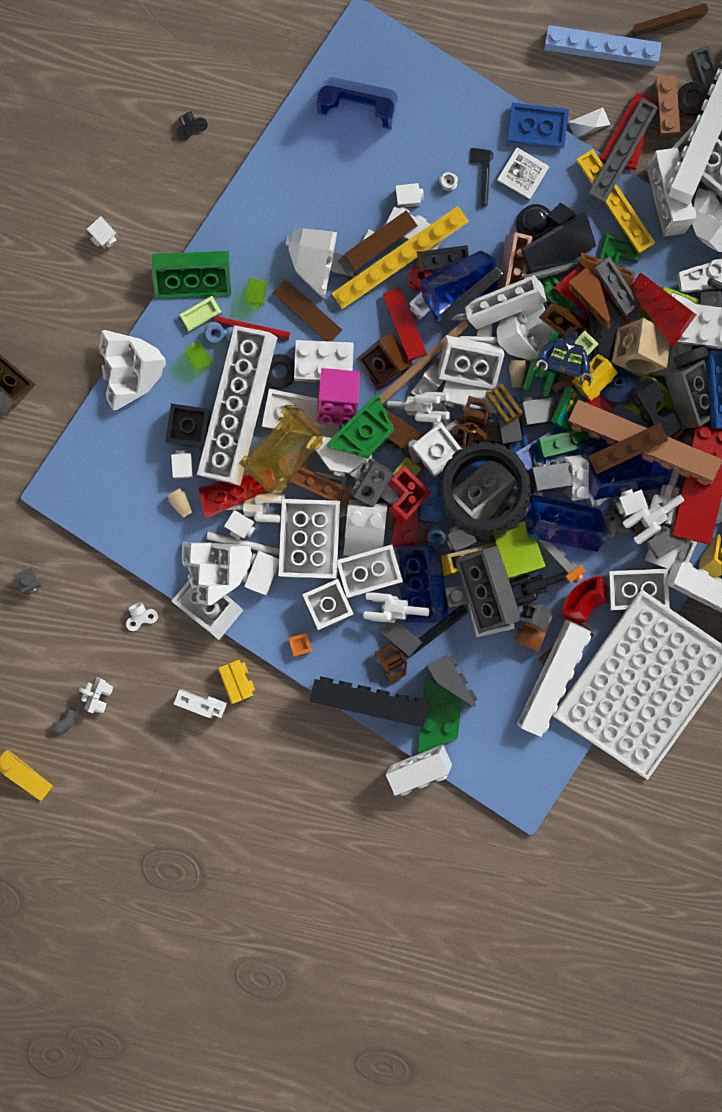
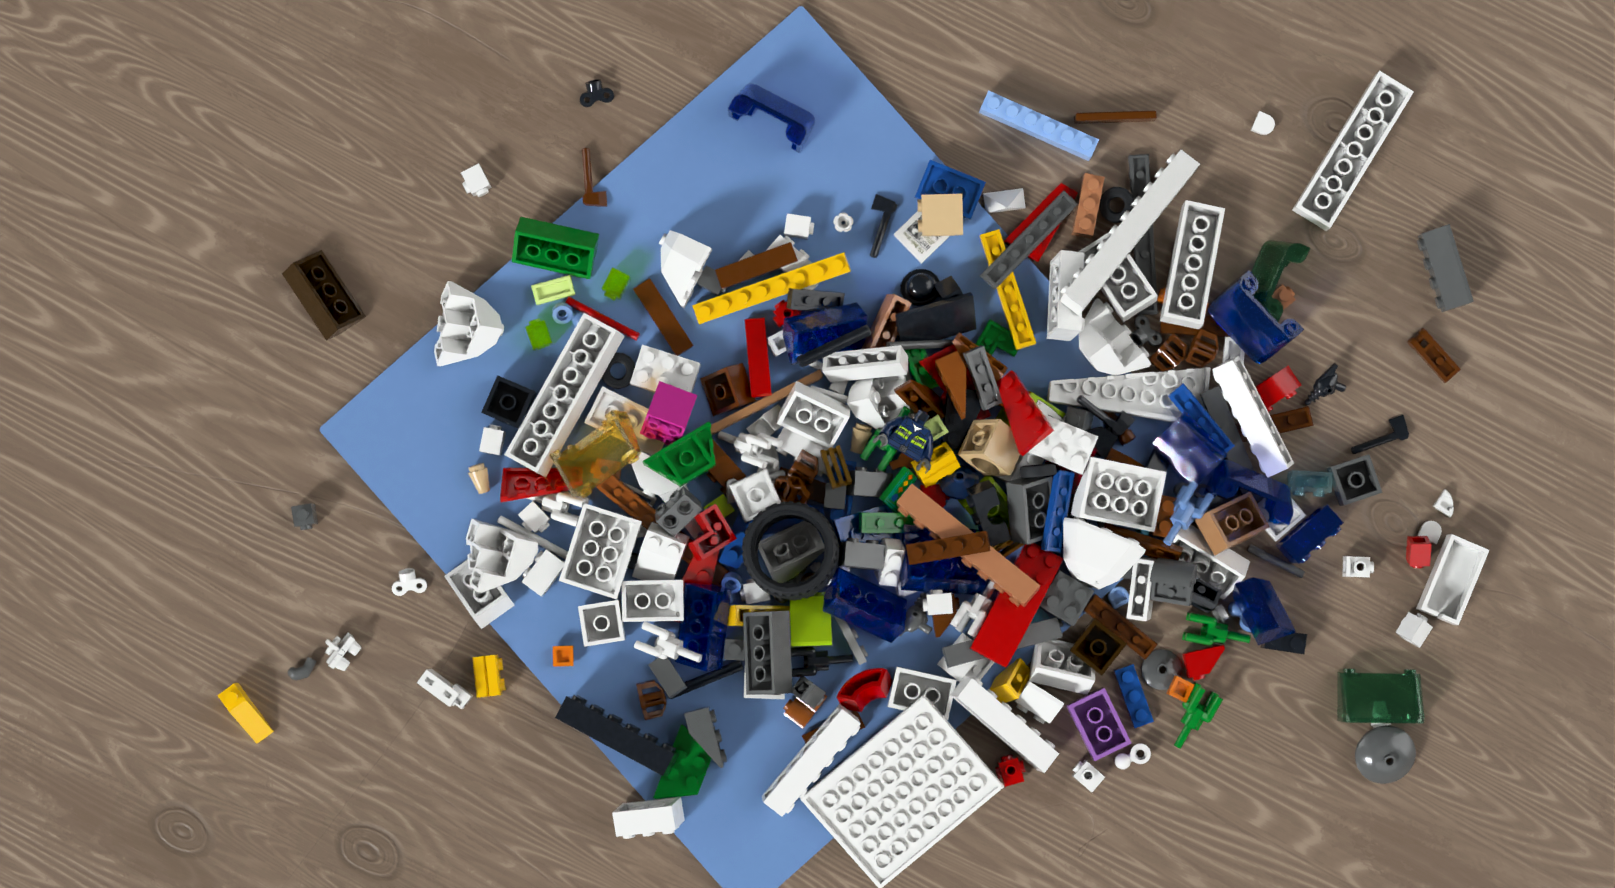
camera: 10 degrees right, 0 degrees up
(211, 221) = (591, 198): none -> reddish brown piece
(537, 148) = (941, 215): none -> tan brick
(576, 575) = (861, 661): orange plate -> none
(652, 518) = (953, 625): white plant -> none

